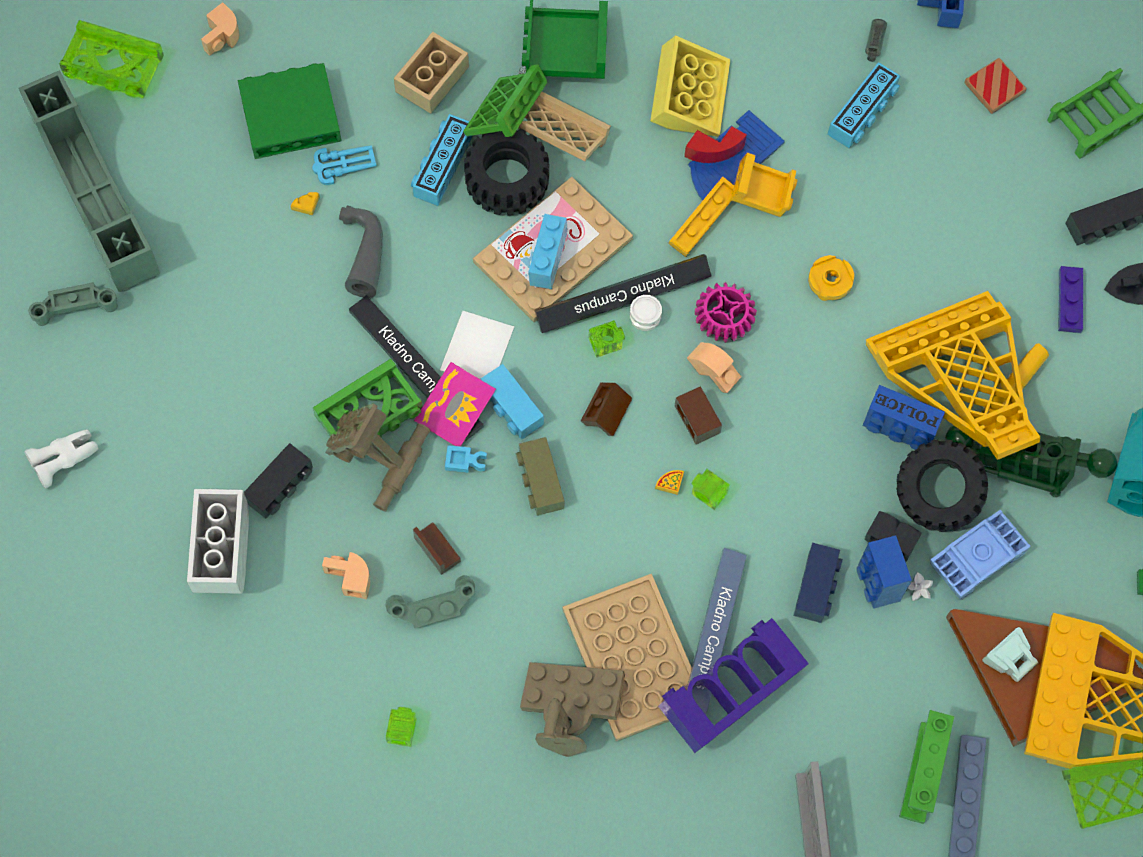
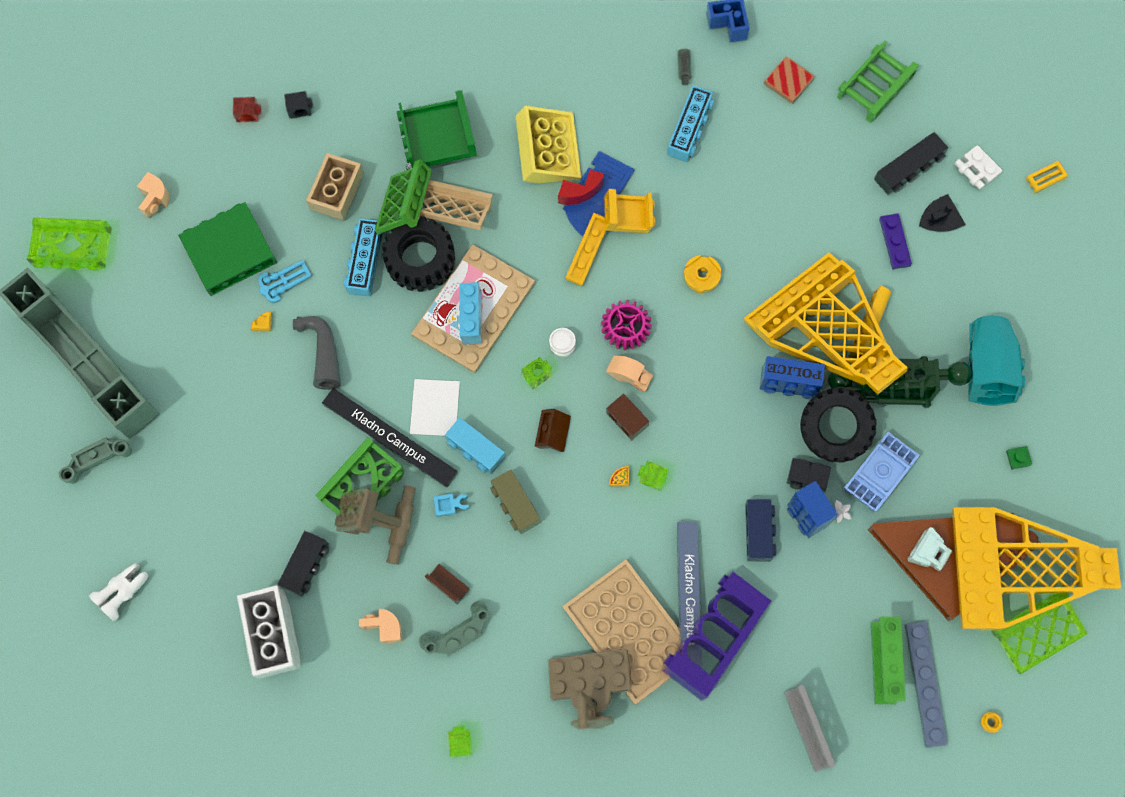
camera: 10 degrees left, 5 degrees up
(455, 404) = (430, 461): dark pink sticker -> none
(622, 293) = (539, 331): black tile -> none

